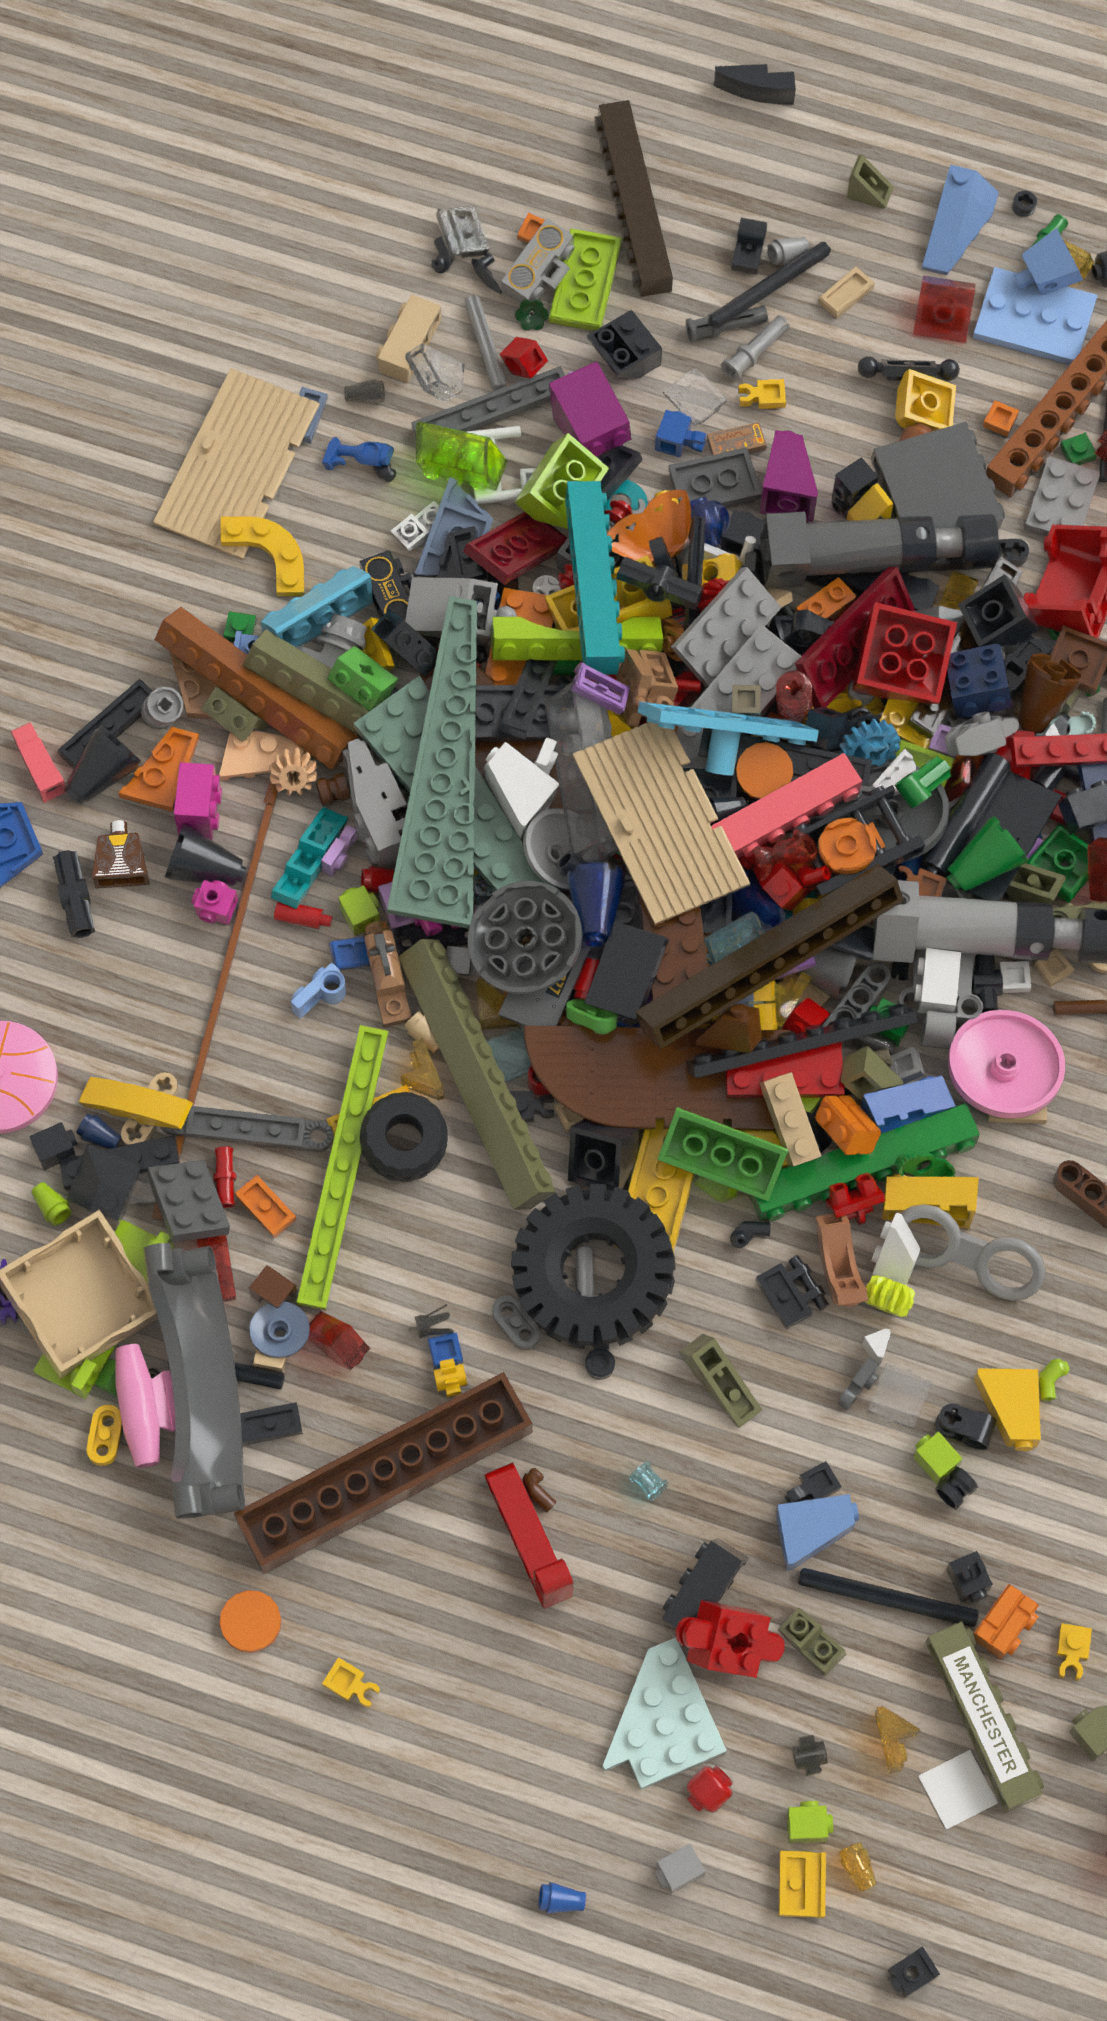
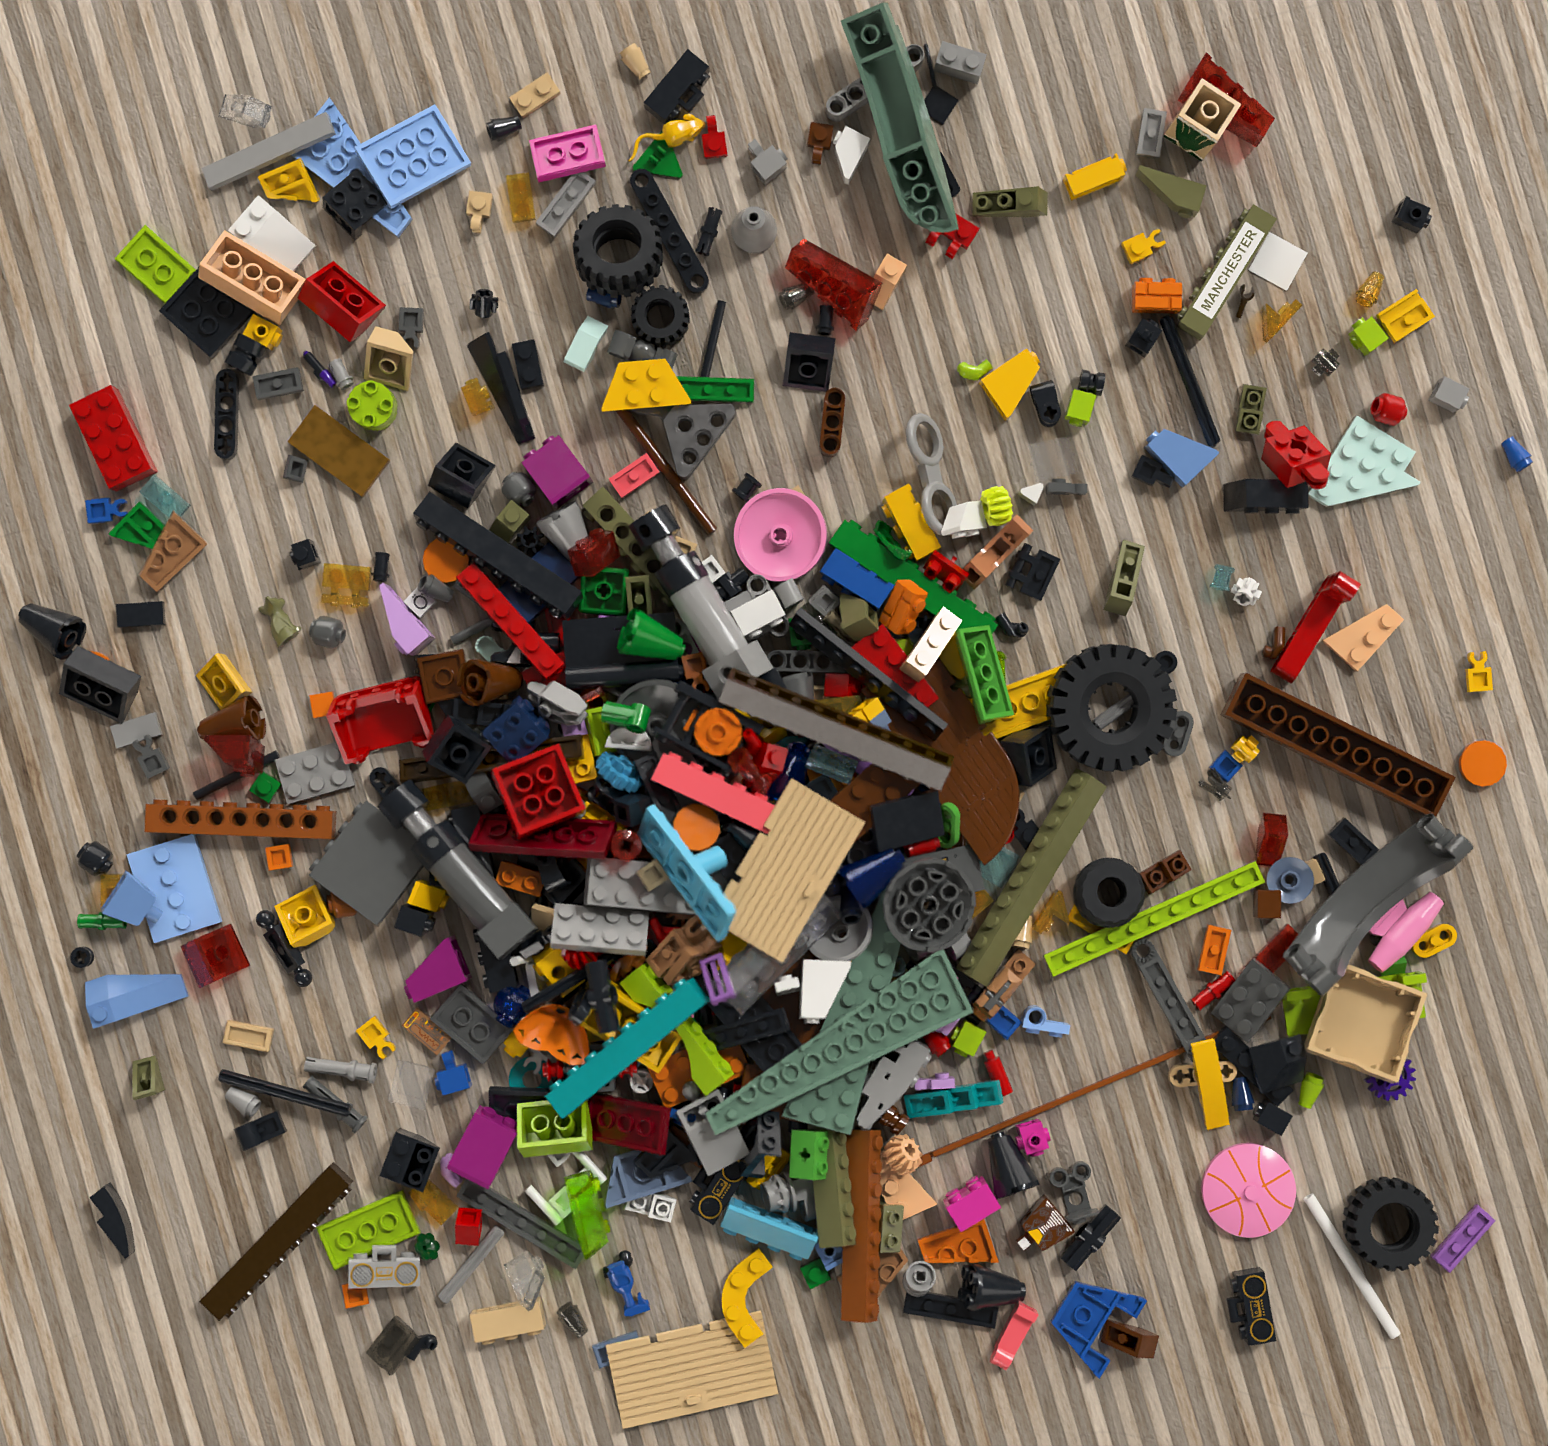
camera: 125 degrees left, 20 degrees up
(140, 910) = (1074, 1183): none -> dark grey piece
(382, 1213) = (1164, 871): none -> reddish brown slope
(478, 1590) = (1363, 637): none -> light nougat wing
(480, 267) = (411, 1312): black bar -> none
(569, 348) = (434, 1202): none -> clear yellow slope
(616, 1494) = (1246, 591): none -> white gear
(733, 1030) = (899, 718): reddish brown slope -> none
(941, 1719) = (1244, 299): none -> dark brown hand
(1078, 1068) = (746, 487): none -> black bush

